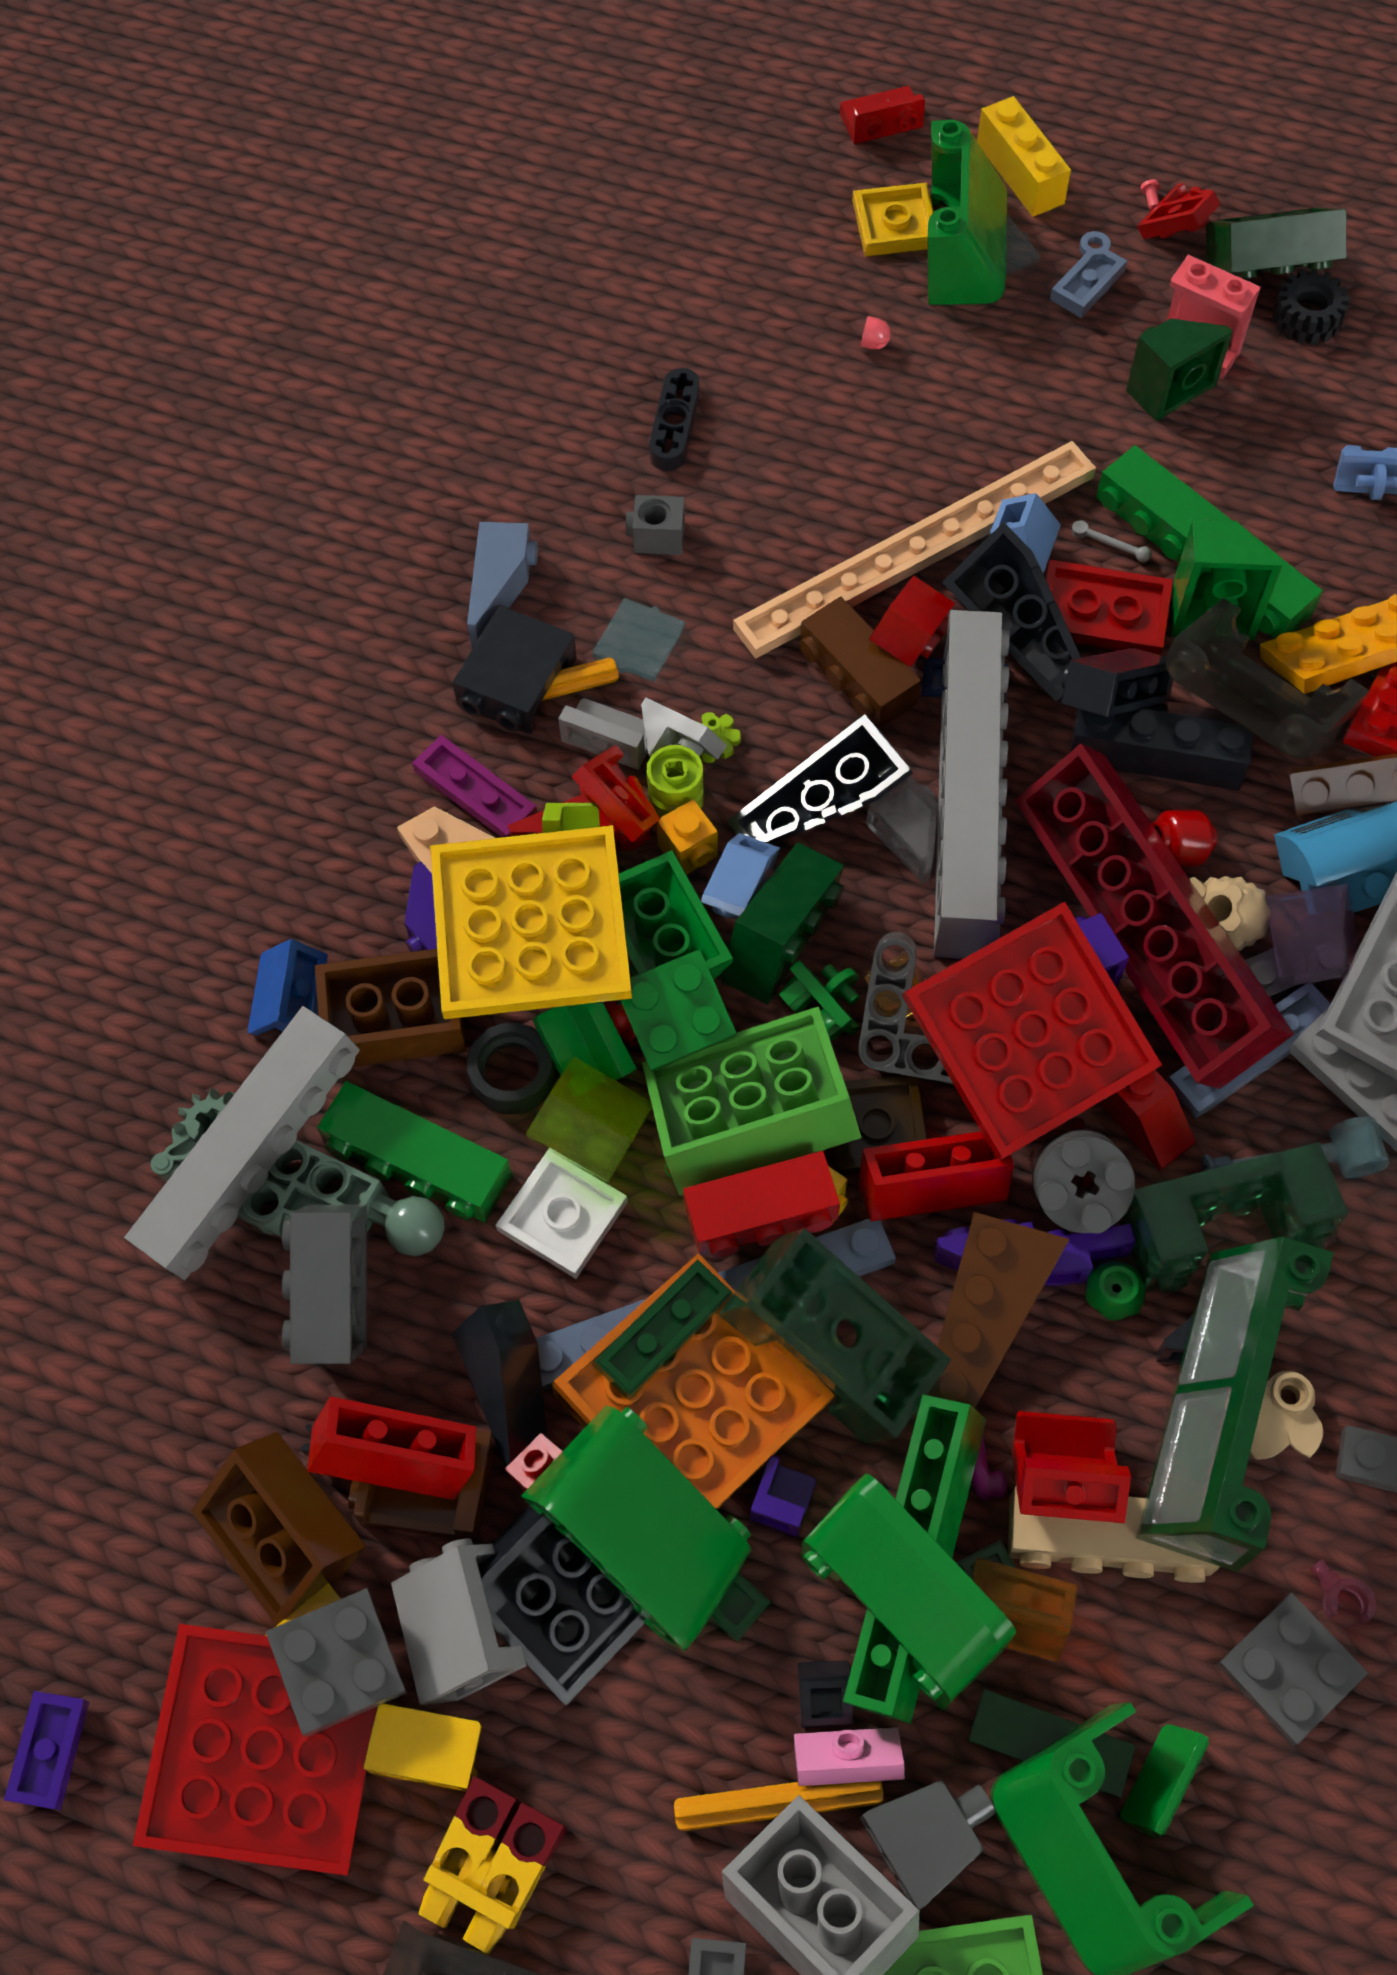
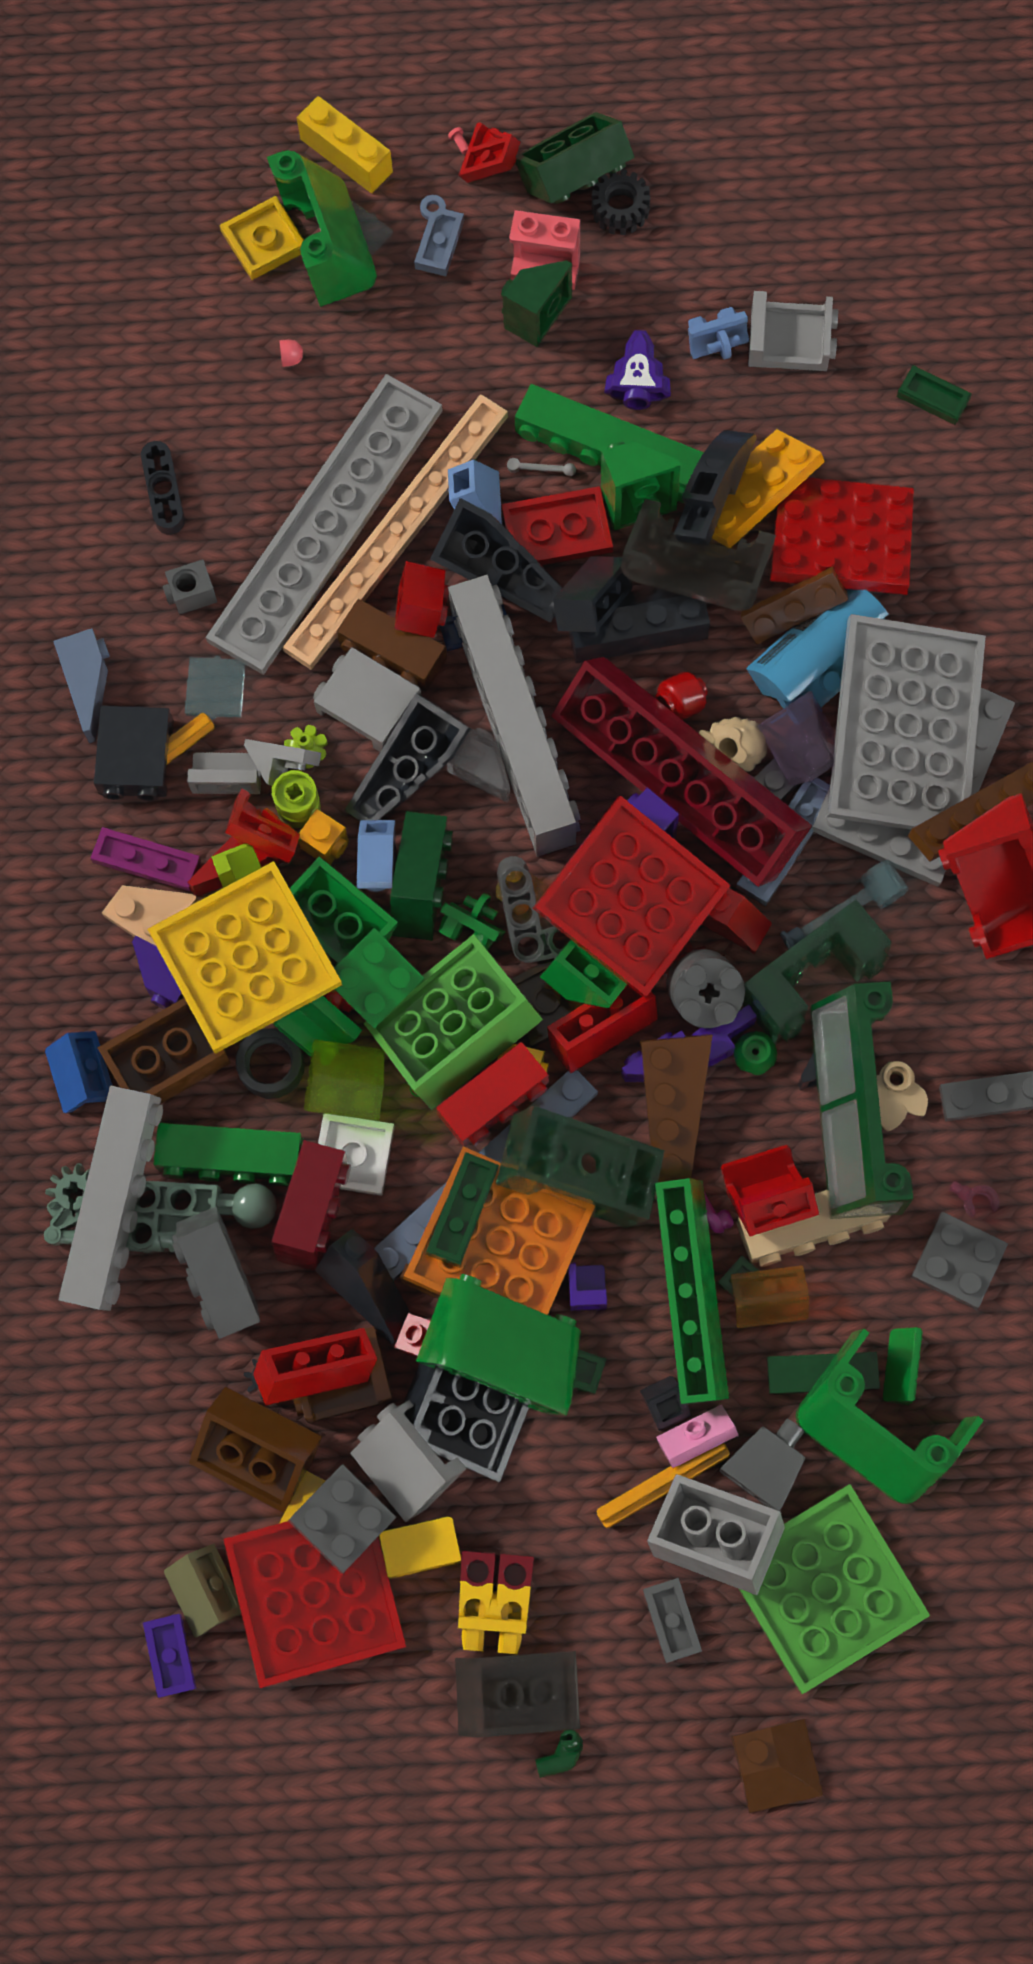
camera: 20 degrees left, 10 degrees up
(129, 1680) = (203, 1589): none -> olive panel
(479, 1249) = (310, 1205): none -> dark red wedge
(802, 702) = (365, 696): none -> light grey panel
(835, 514) = (324, 524): none -> light grey plate
(883, 114) = (213, 141): red bracket -> none
(909, 1588) = (695, 1314): green windscreen -> none
(930, 1106) = (582, 978): none -> green slope
(1262, 484) = (638, 375): none -> dark purple rock
(1305, 612) = (710, 483): none -> black slope

